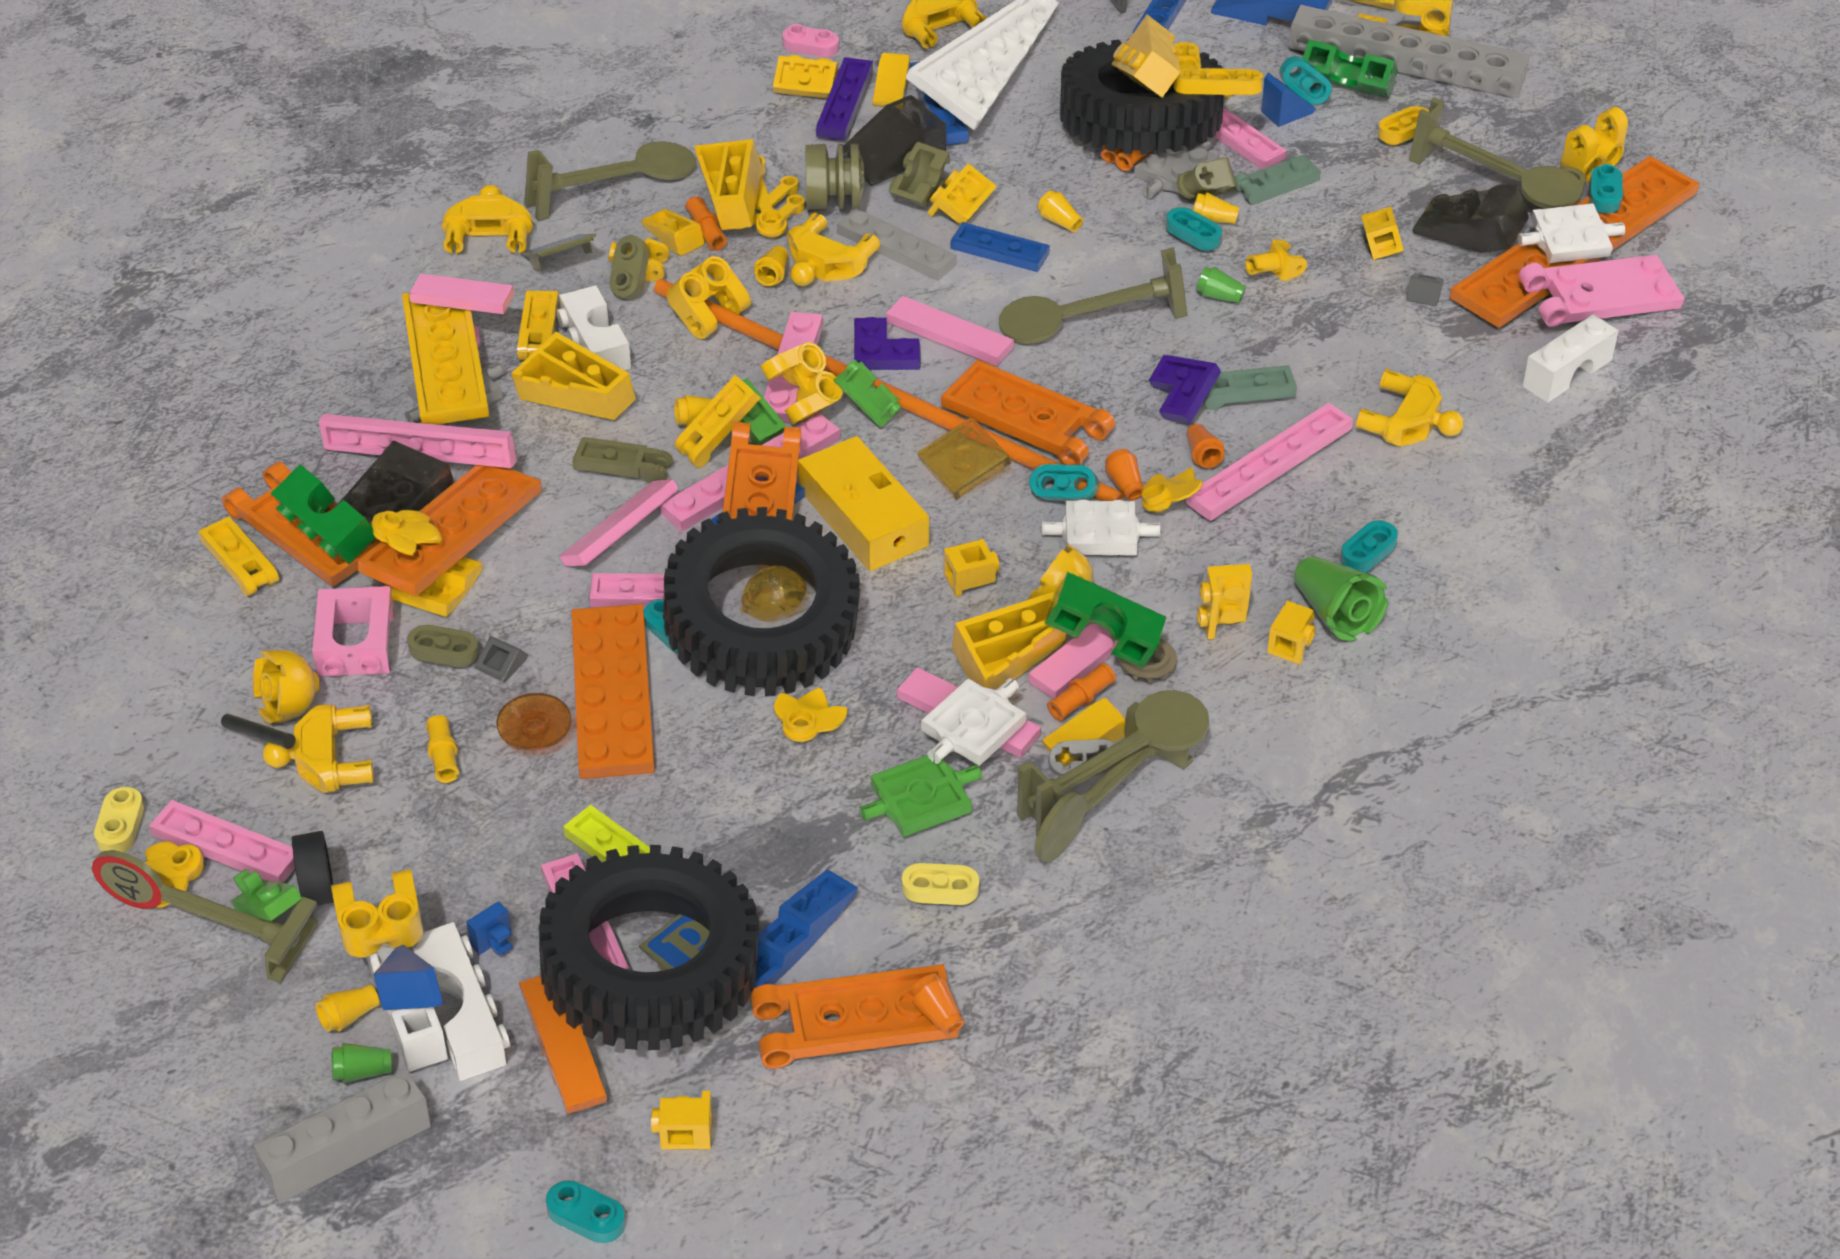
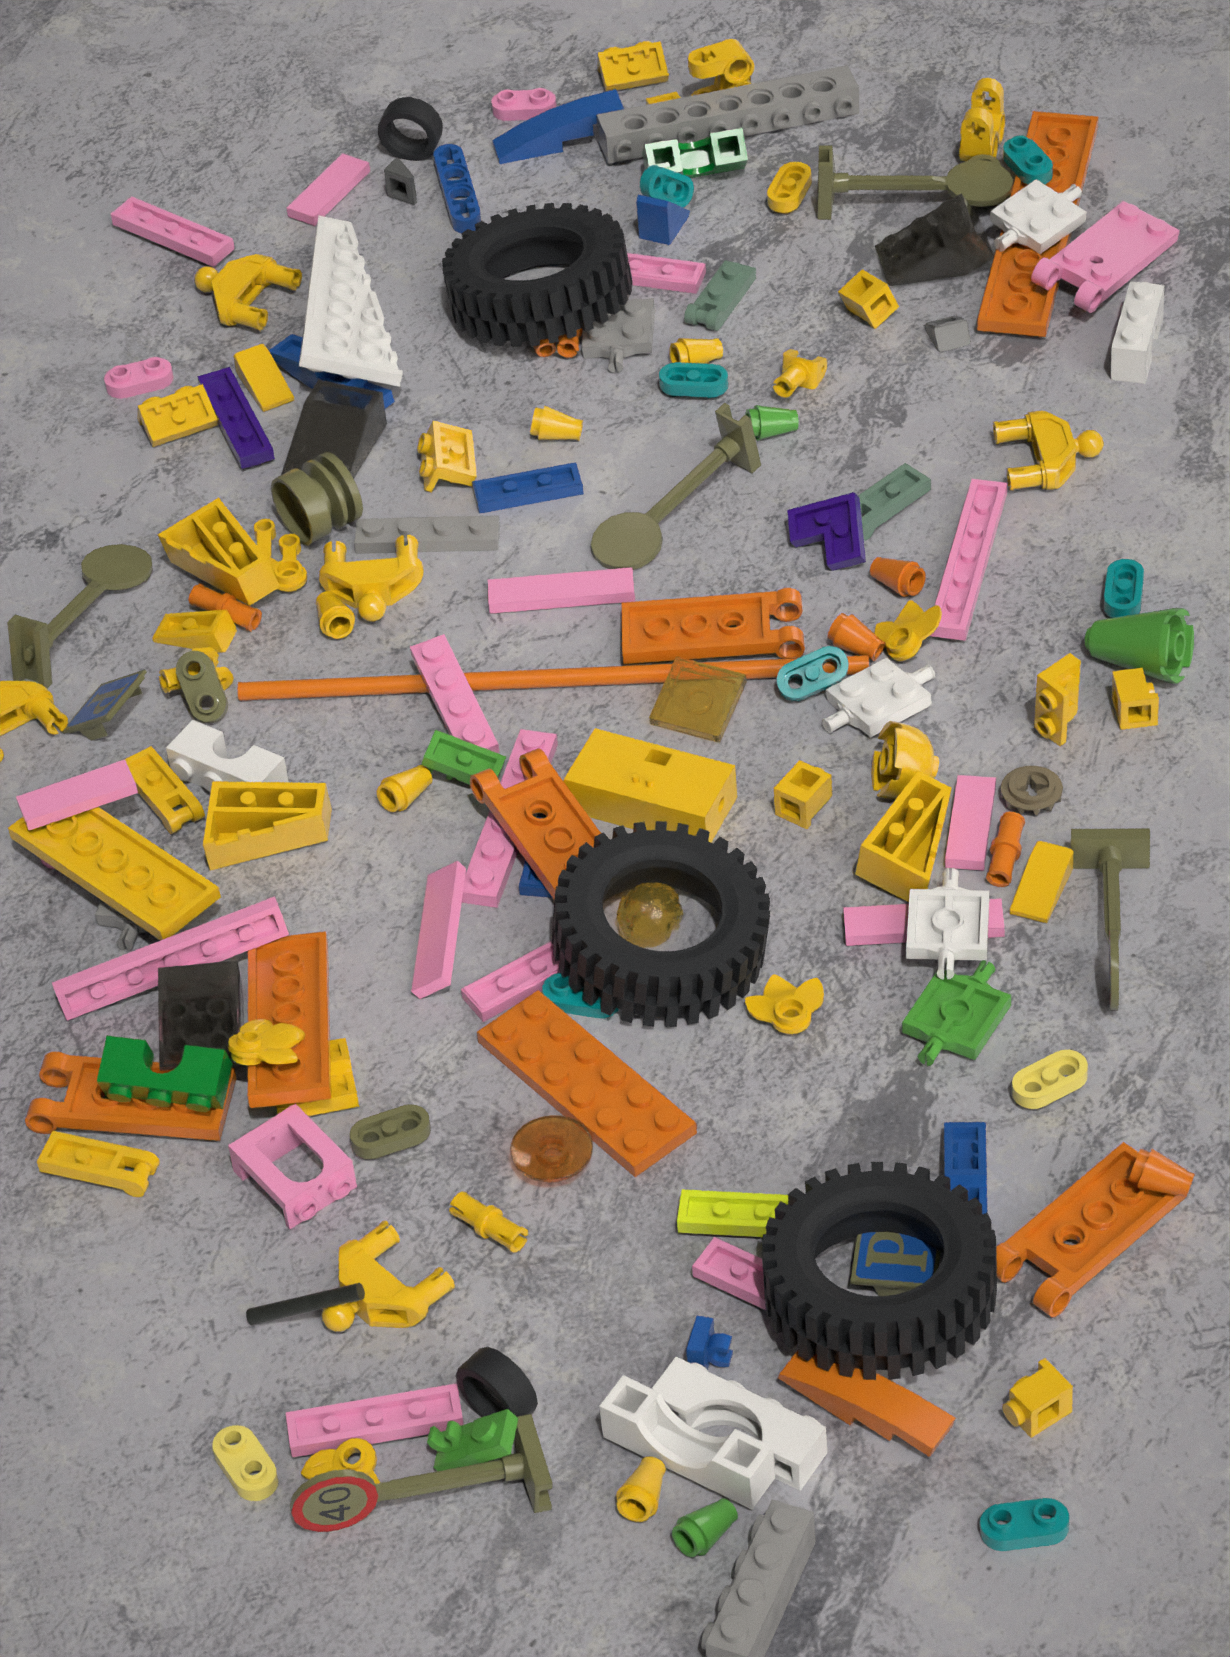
camera: 30 degrees left, 0 degrees up
(284, 684) = (282, 1252): yellow cylinder -> none
(368, 927) = (621, 1398): yellow piece -> none
(407, 981) = (709, 1421): blue slope -> none
(500, 659) = (453, 1114): dark grey slope -> none
(622, 459) = (378, 871): olive hinge -> none
(693, 309) = (298, 666): yellow piece -> none
(716, 421) = (444, 784): yellow plate -> none
(804, 368) = (504, 707): yellow piece -> none
(878, 402) = (541, 679): bright green hinge -> none
(882, 353) = (513, 646): dark purple plate -> none
(922, 174) = (394, 453): olive cylinder -> none
(1077, 748) = (1070, 910): light grey beam -> none
(1131, 625) = (1014, 766): green arch -> none
(1149, 57) = (534, 234): yellow wedge -> none
(1163, 720) = (1116, 830): olive piece -> none
(1211, 177) = (666, 325): olive piece -> none
(1212, 80) = (596, 233): yellow beam -> none

